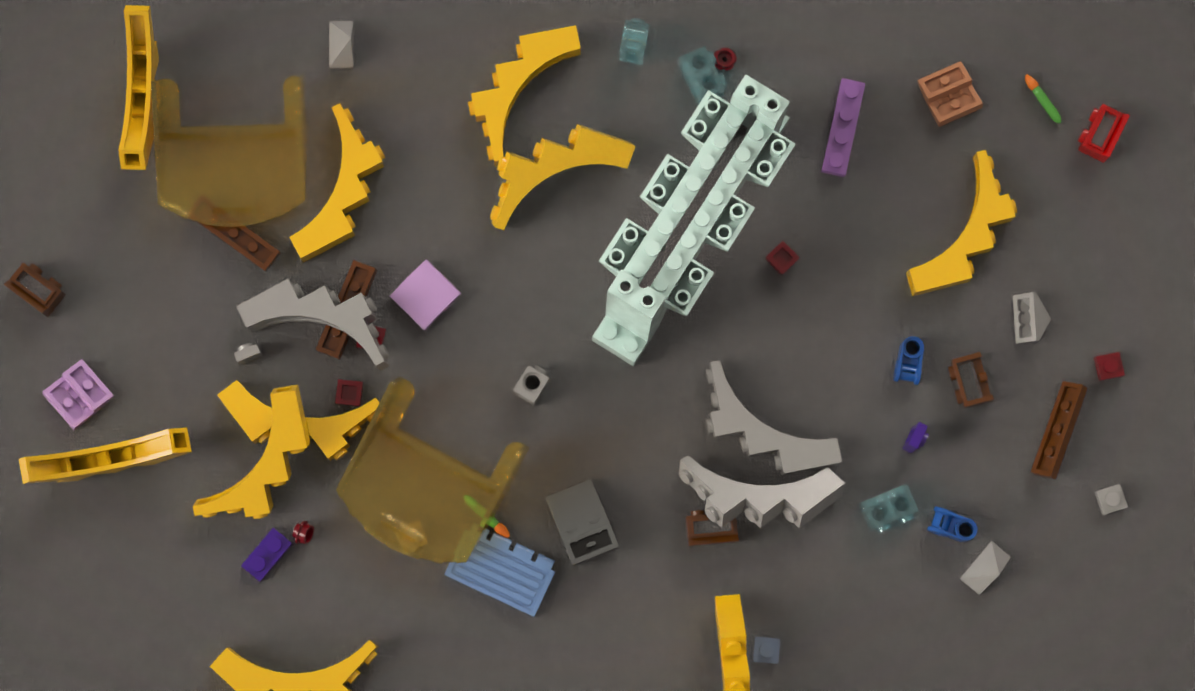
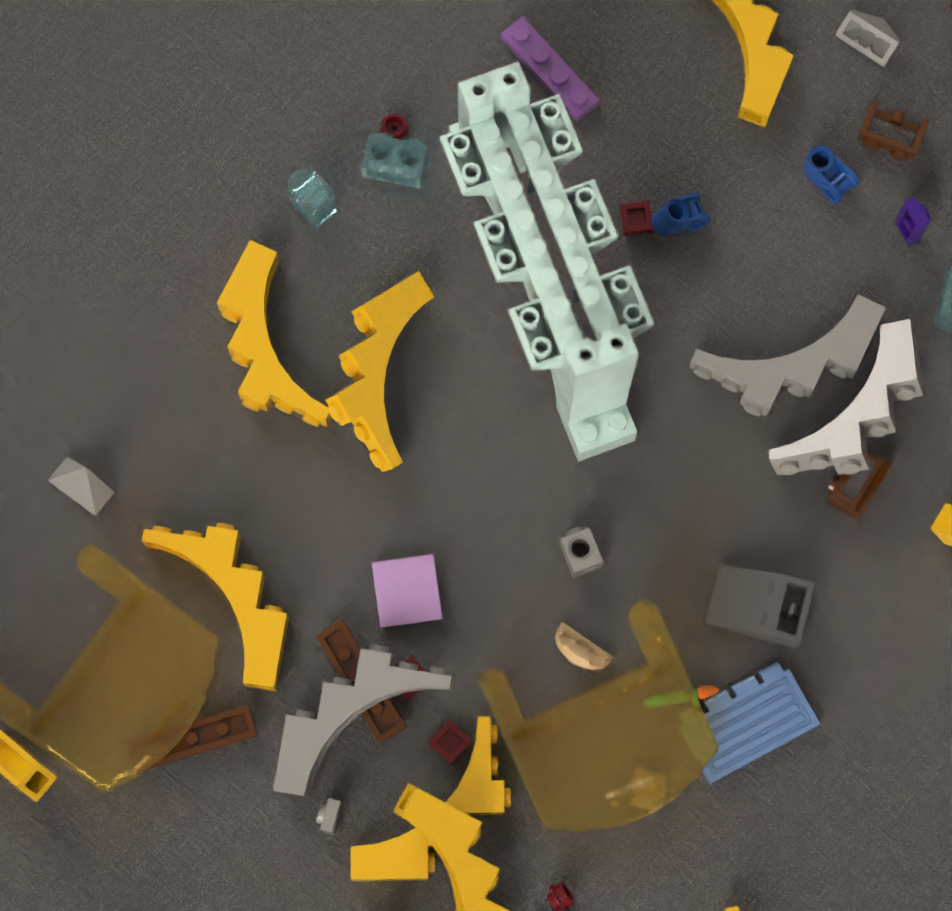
camera: 50 degrees left, 5 degrees down
(468, 431) = (580, 650): none -> tan plate
(808, 286) = (680, 215): none -> blue piece

